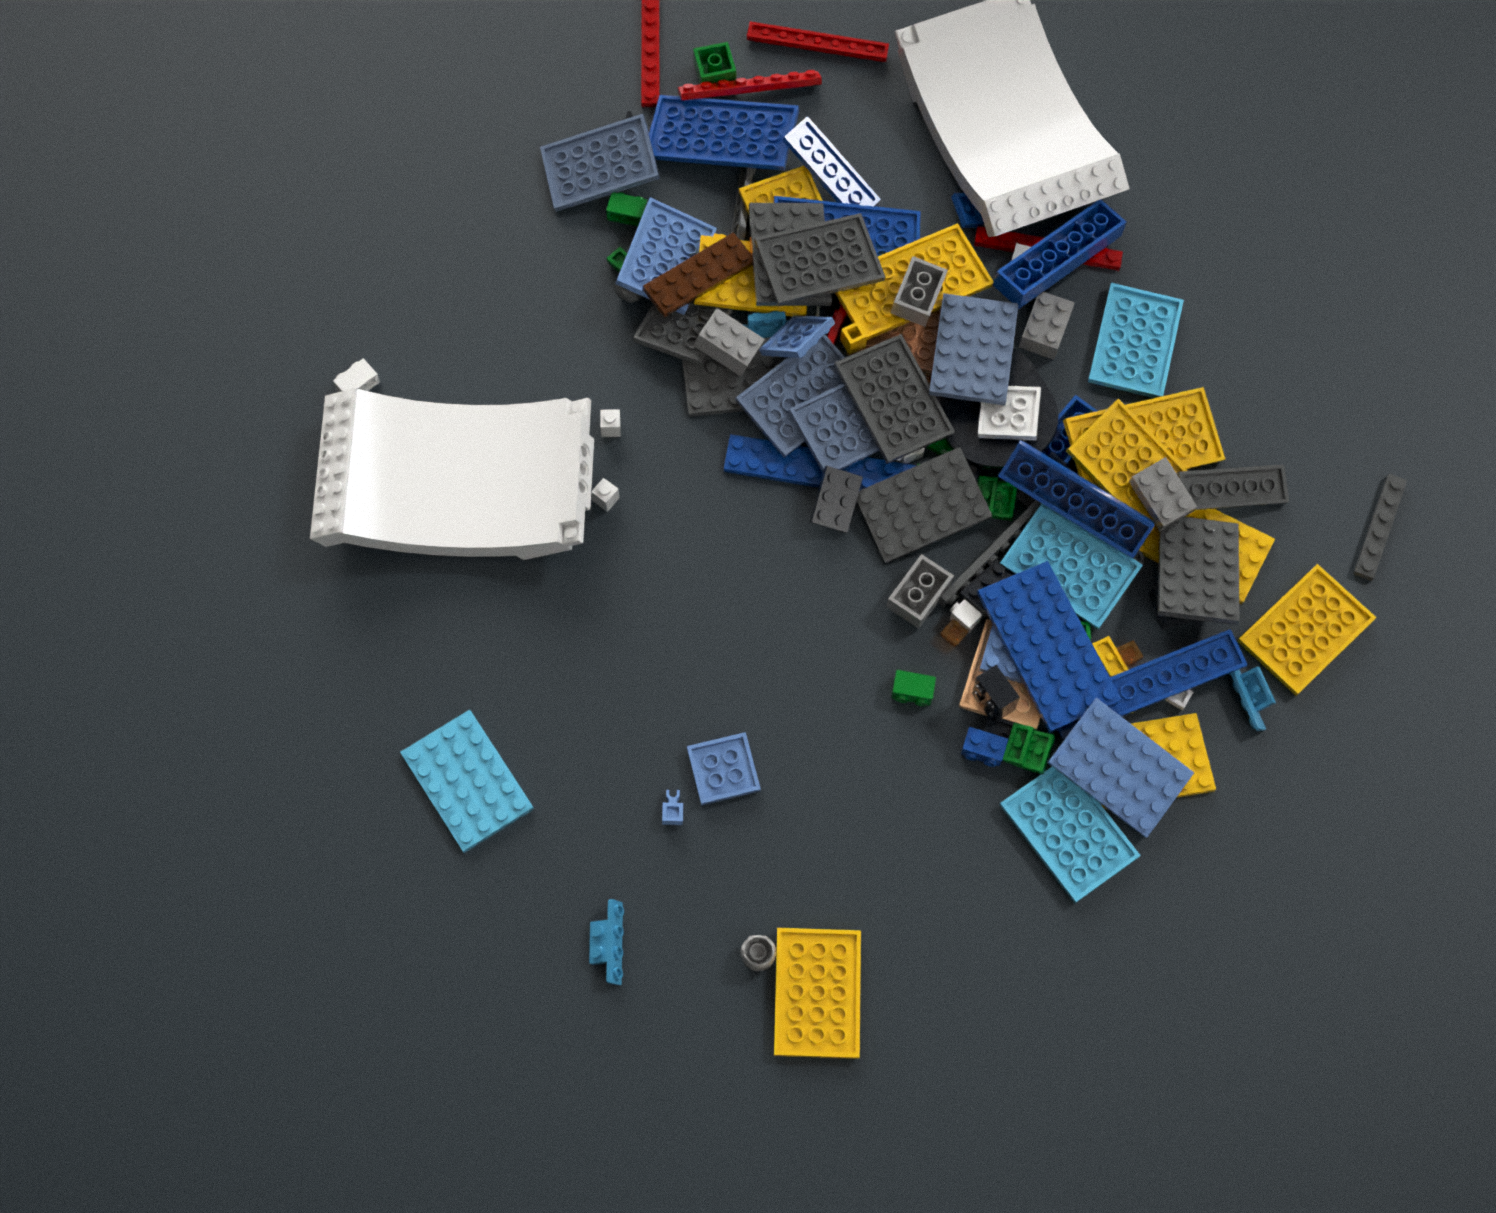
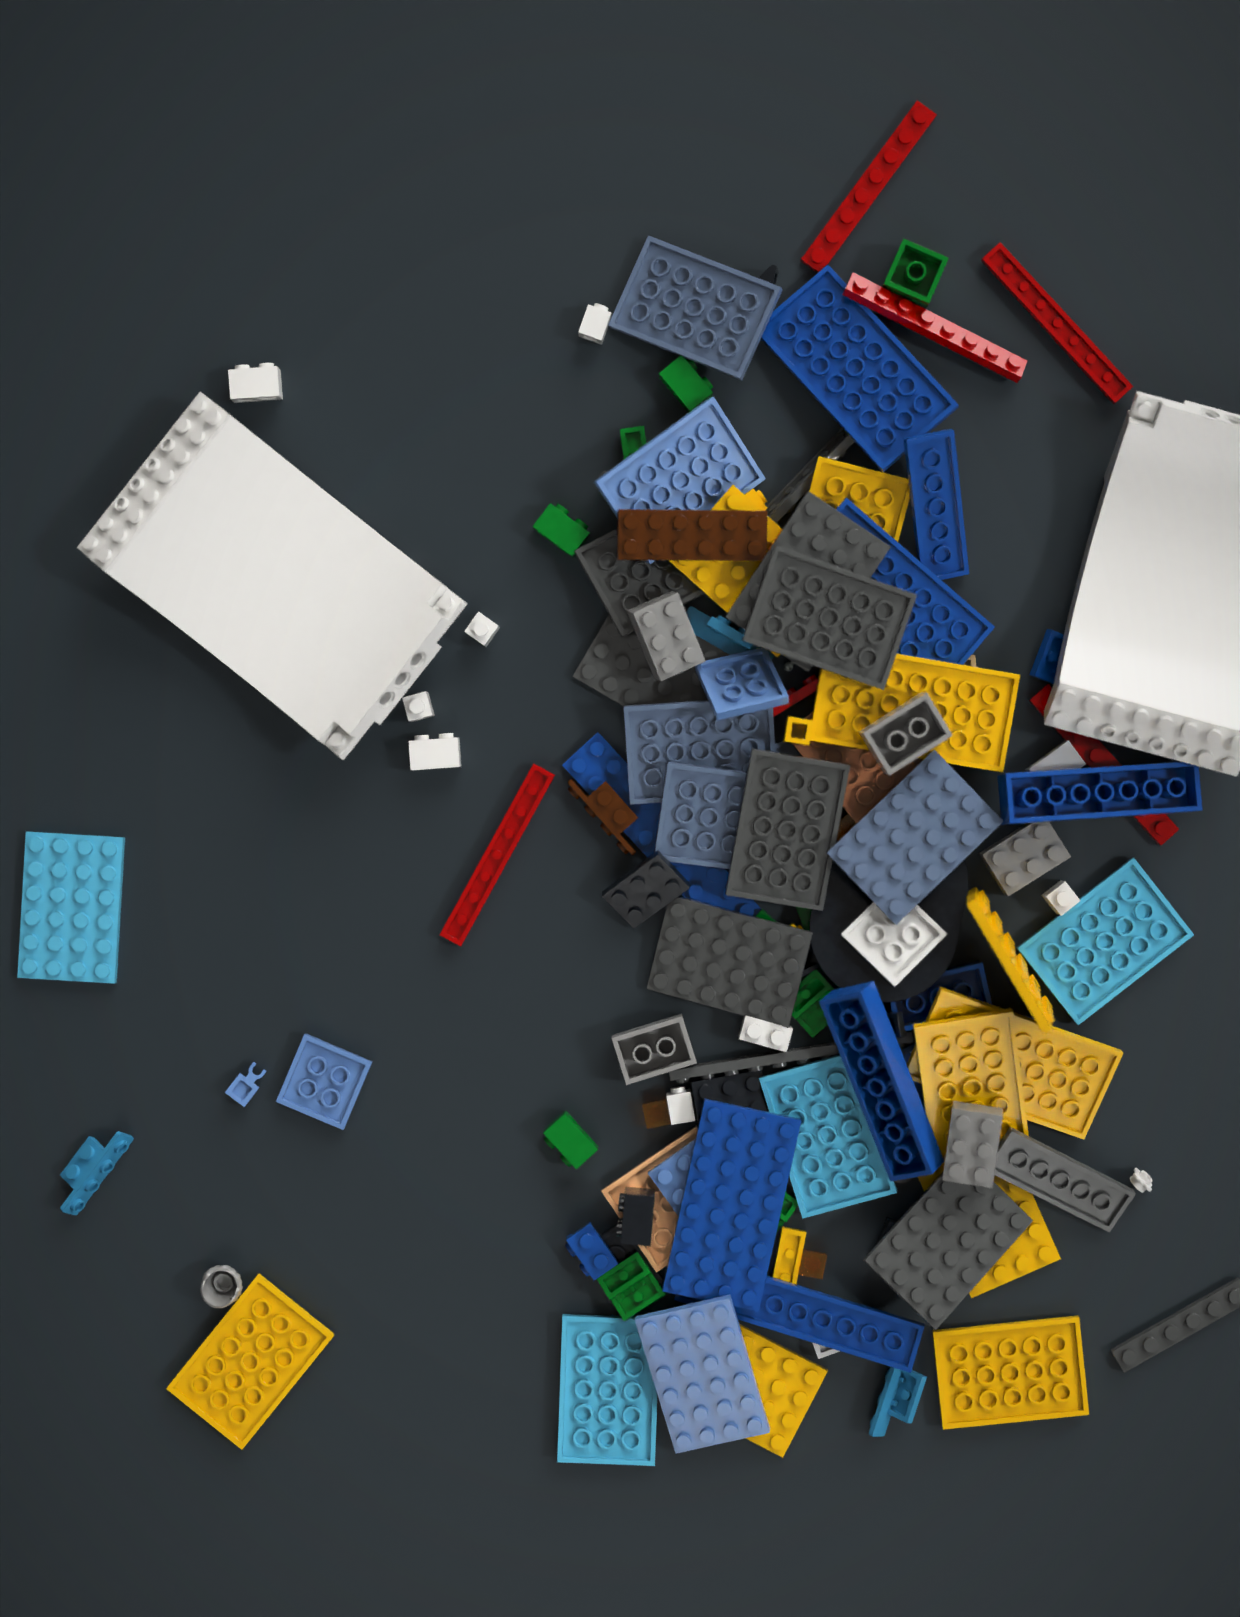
camera: 35 degrees right, 20 degrees up
(545, 213) = (595, 323): none -> white brick
(615, 336) = (561, 529): none -> green brick
(637, 515) = (434, 753): none -> white brick
(725, 550) = (497, 854): none -> red plate
(774, 472) = (610, 809): none -> reddish brown bracket
(980, 533) = (765, 1033): none -> white brick
(1089, 333) = (1060, 898): none -> white brick
(1089, 375) = (1013, 963): none -> yellow plate
(1280, 458) = (1141, 1180): none -> white plate

